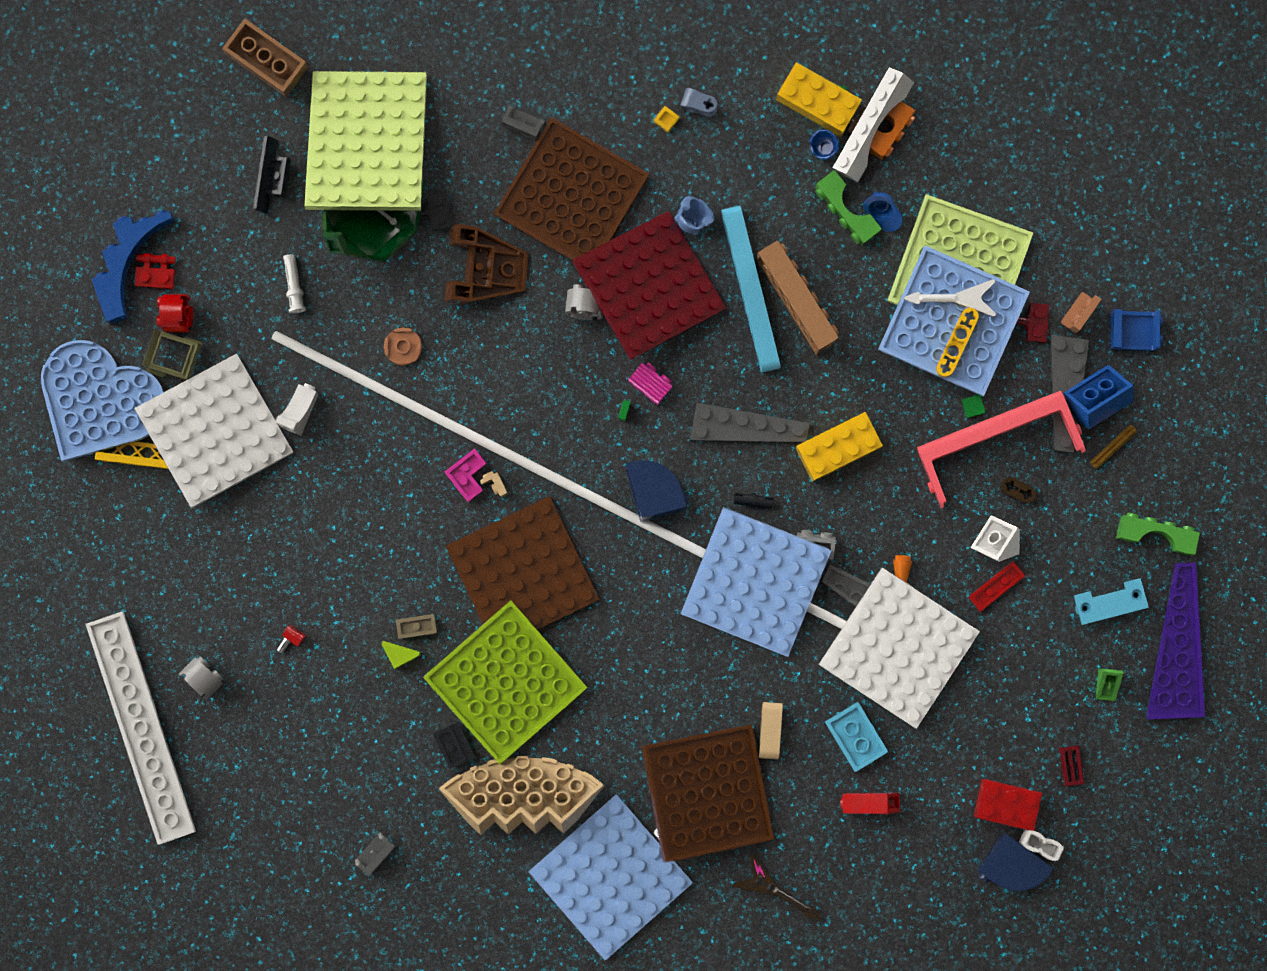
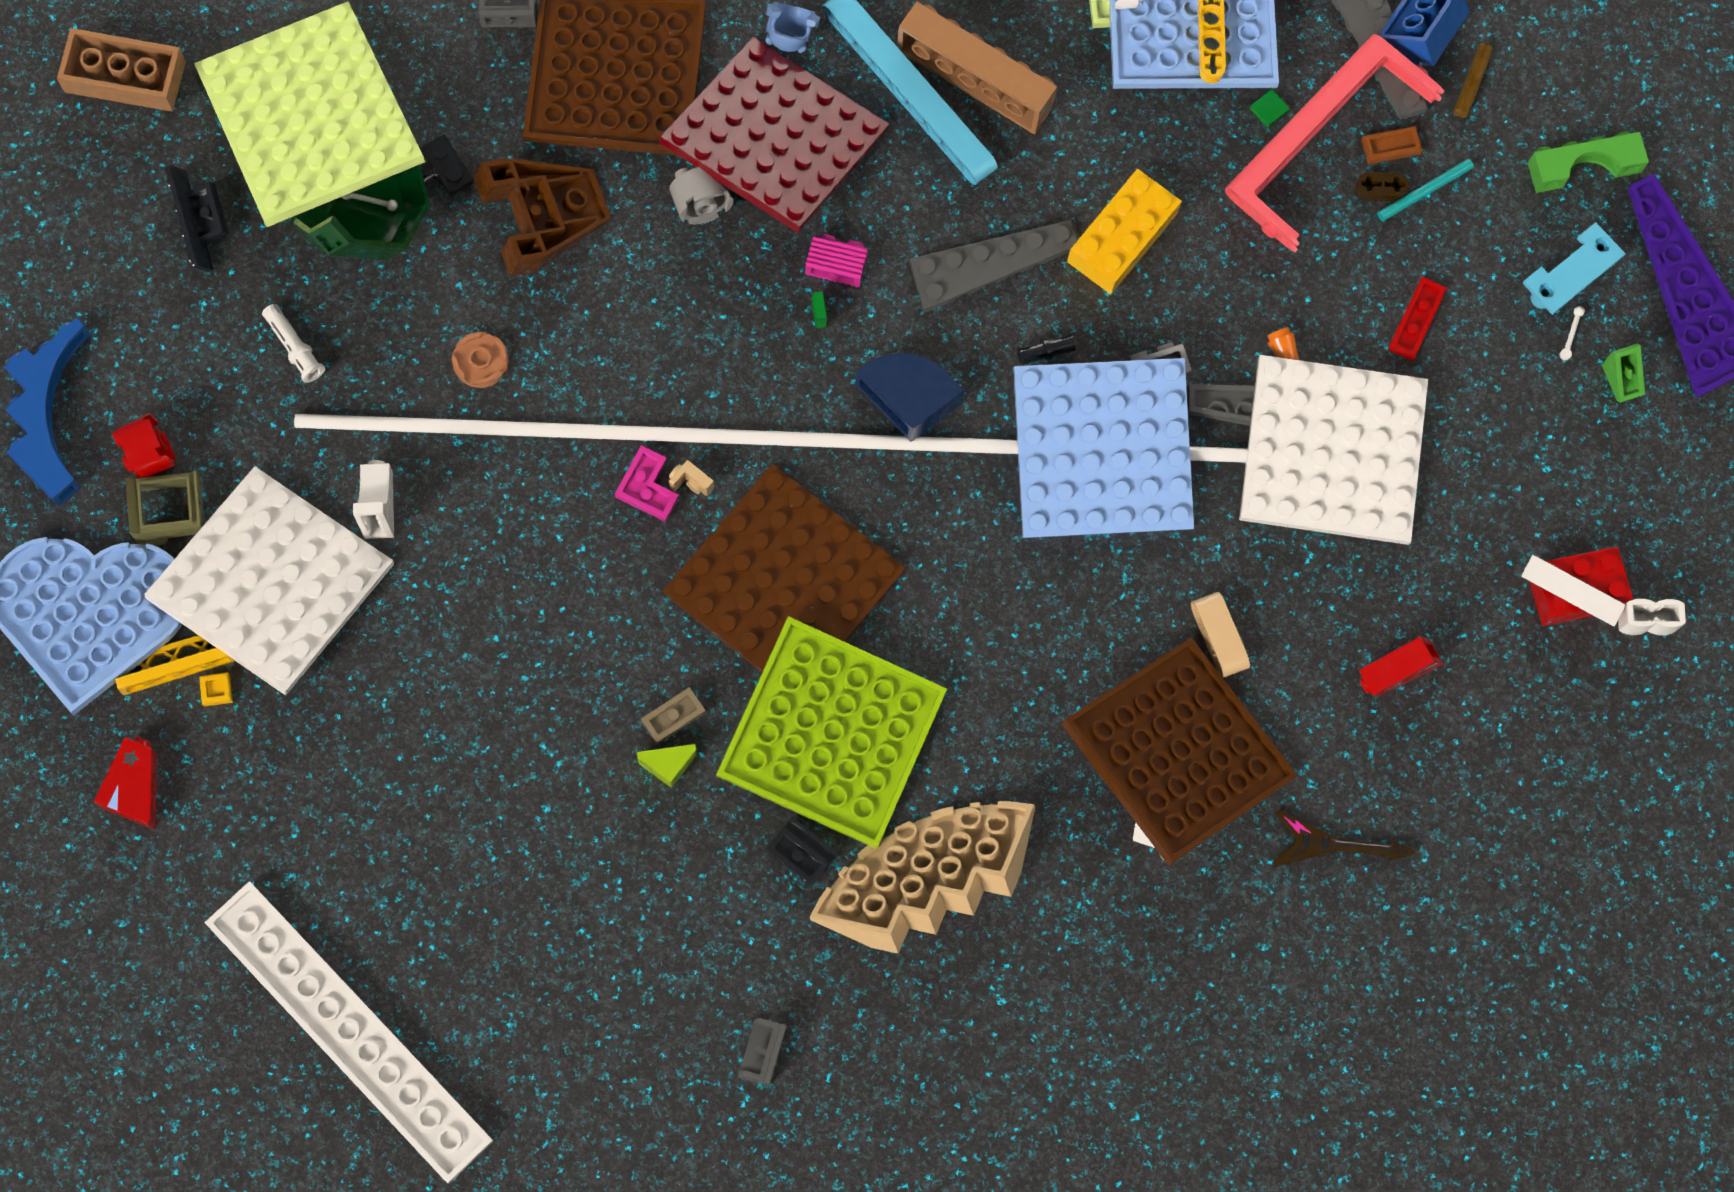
camera: 30 degrees left, 10 degrees down
(79, 519) = (132, 783): none -> red slope
(154, 482) = (216, 689): none -> yellow tile
(155, 277) = (94, 417): red plate -> none
(201, 678) = (405, 919): light grey brick -> none
(292, 635) = (503, 807): red piece -> none
(610, 877) = (1103, 932): light blue plate -> none
(856, 736) = (1337, 591): medium azure plate -> none
(998, 540) = (1389, 255): white slope -> none
(998, 808) = (1573, 590): none -> white sticker
(1013, 866) = (1628, 662): dark blue brick -> none
(1039, 465) = (1391, 145): none -> dark orange tile
(1045, 505) = (1425, 190): none -> teal bar
(1064, 768) = (1626, 508): dark red tile -> none
(1079, 652) = (1566, 353): none -> white hinge

